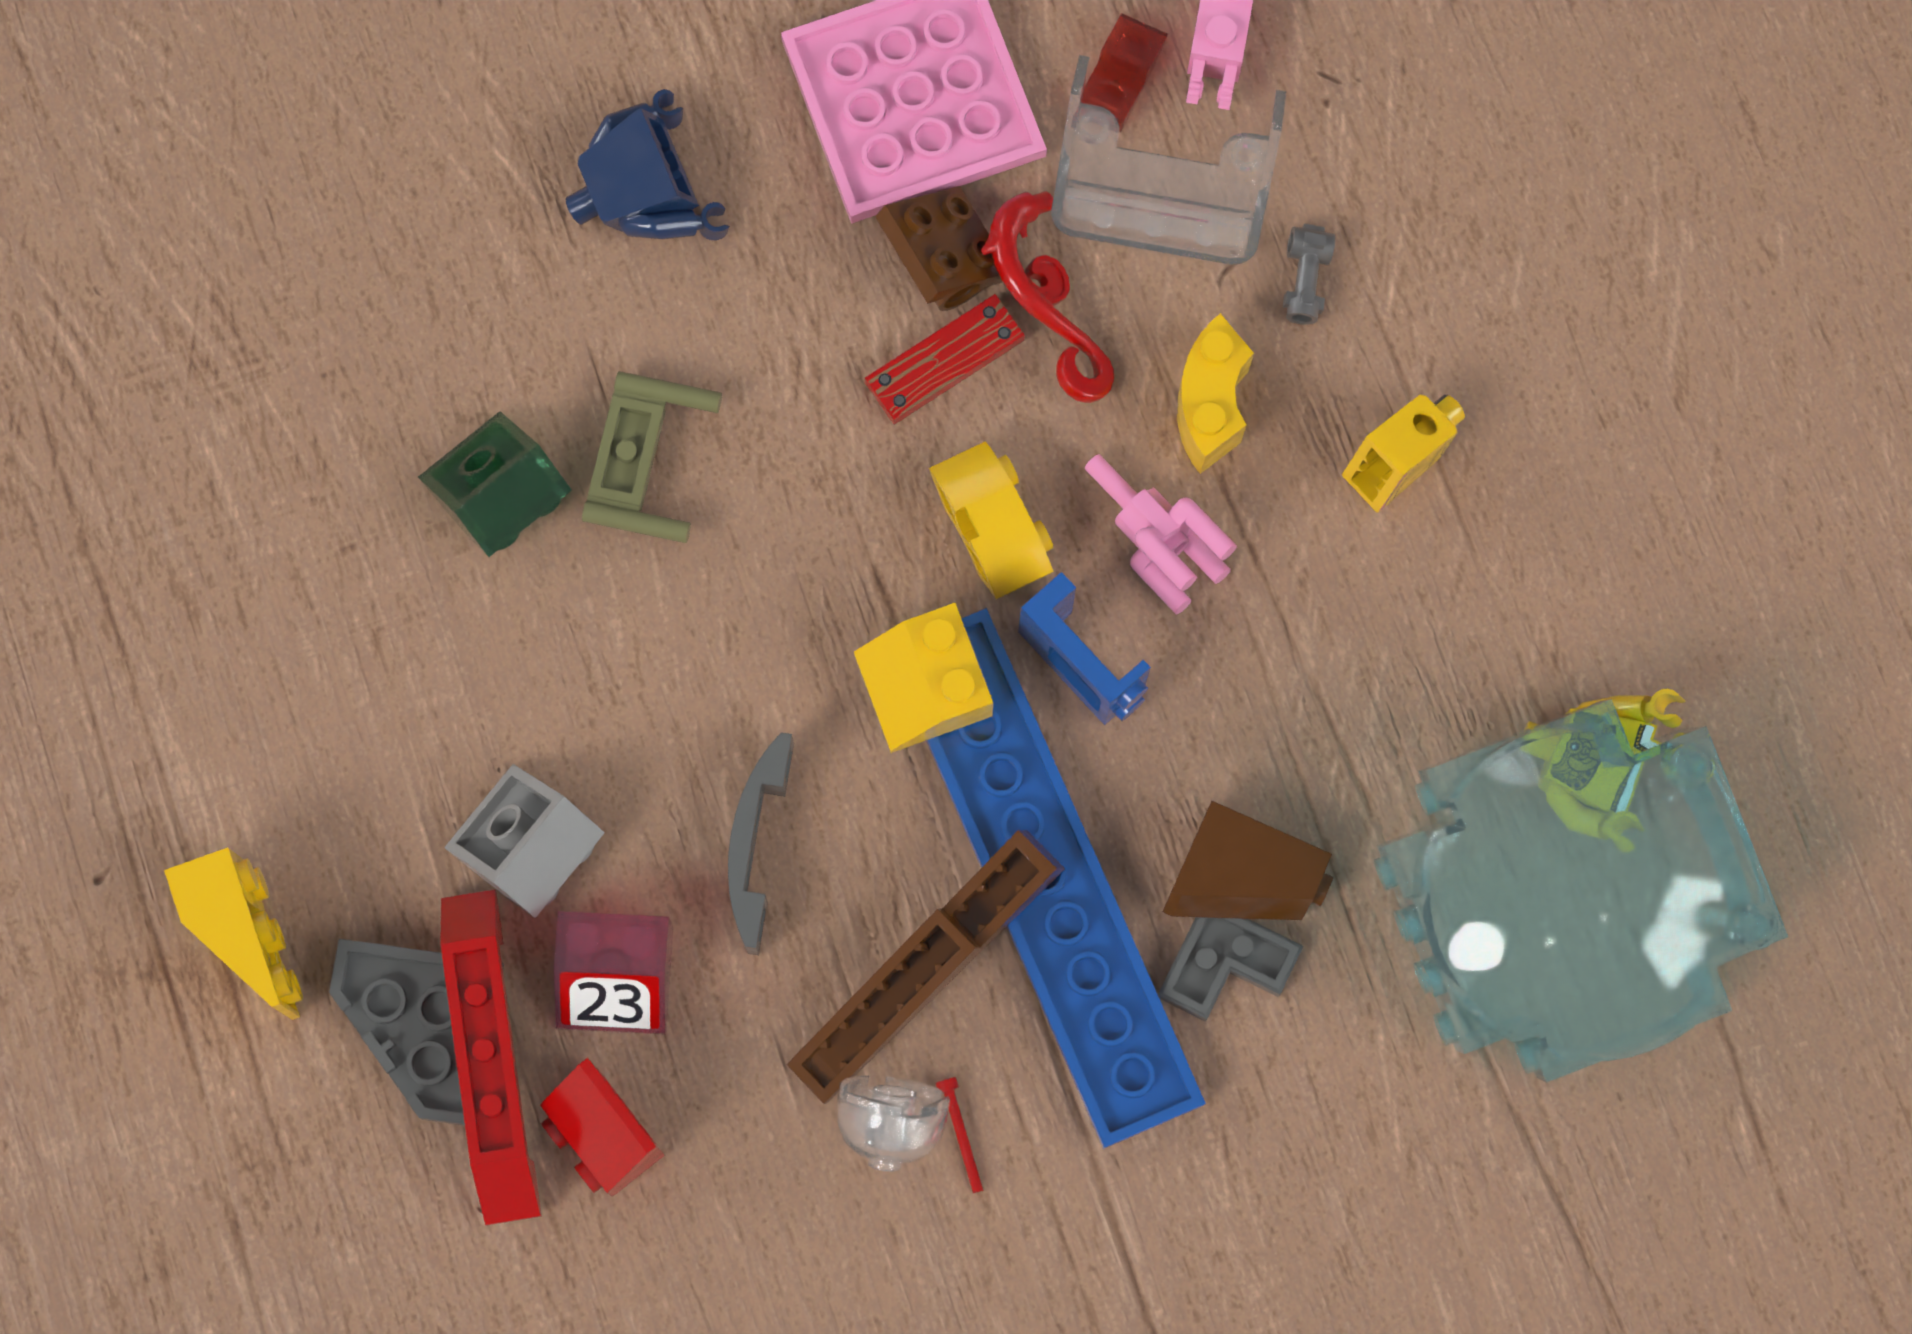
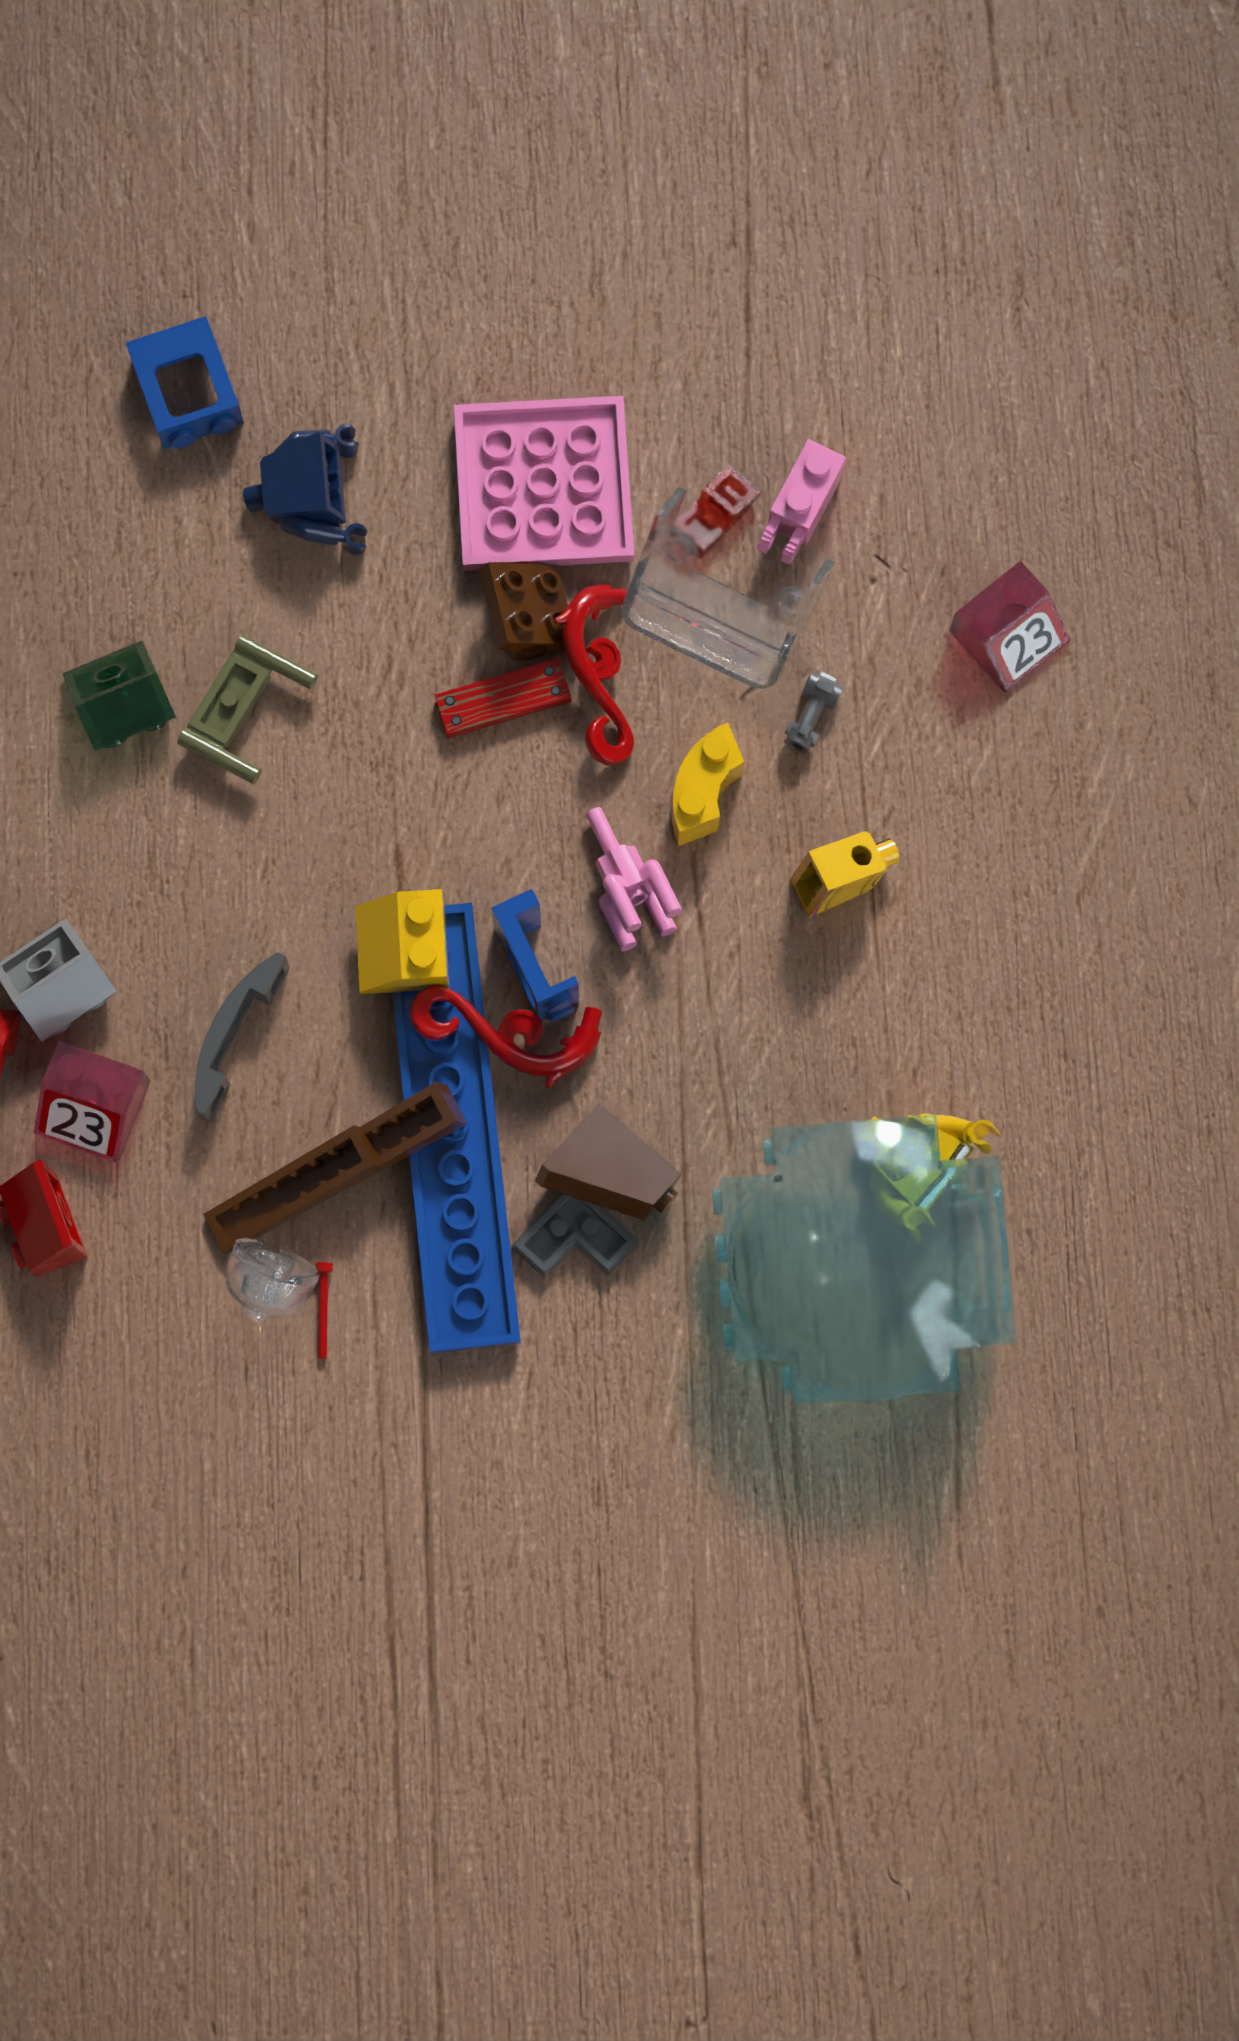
camera: 15 degrees right, 0 degrees up
(432, 54) = (173, 346): none -> blue window
(992, 519) = (498, 834): yellow brick -> none
(1073, 762) = (500, 1042): none -> red plant
(1505, 111) = (1010, 627): none -> clear pink slope

